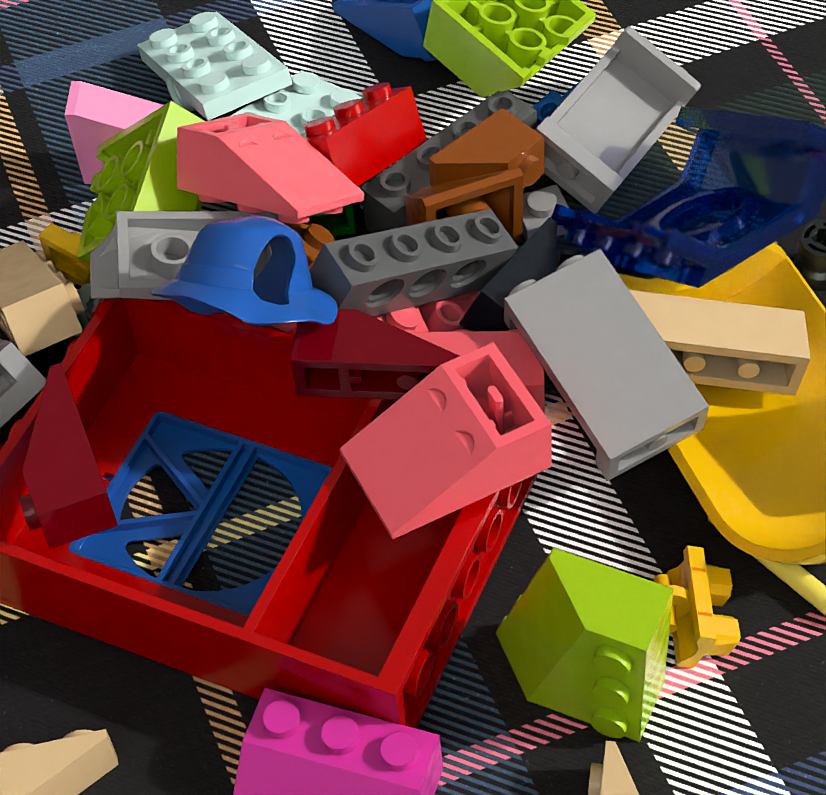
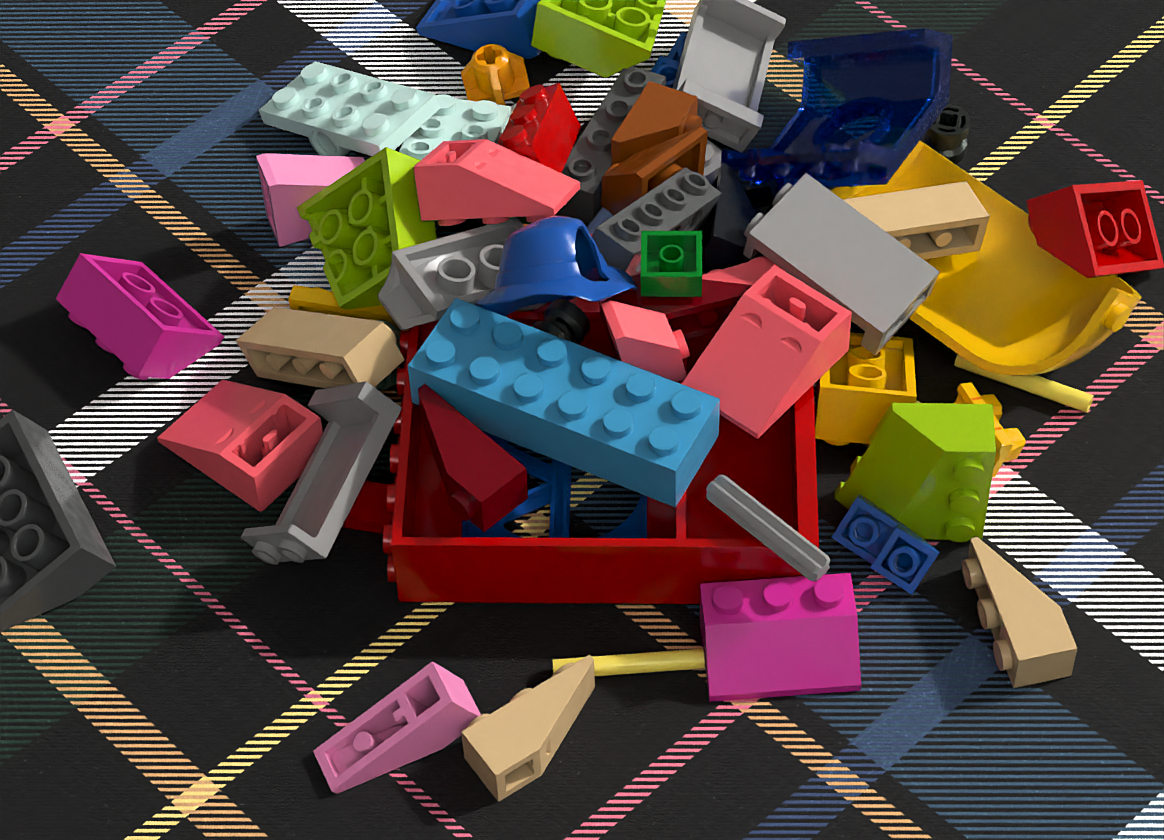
camera: 25 degrees left, 0 degrees up
(166, 751) = (642, 662): none -> light yellow piece
(204, 433) = (568, 401): none -> dark azure brick
(241, 350) = (564, 321): none -> pearl dark grey wheel
(312, 391) = (646, 340): none -> coral slope
(344, 653) = (768, 528): none -> light grey axle
(374, 62) = (494, 75): none -> light orange piece
(379, 307) = (671, 263): none -> green piece
(513, 703) = (885, 544): none -> blue slope
(581, 511) = (861, 389): none -> yellow slope

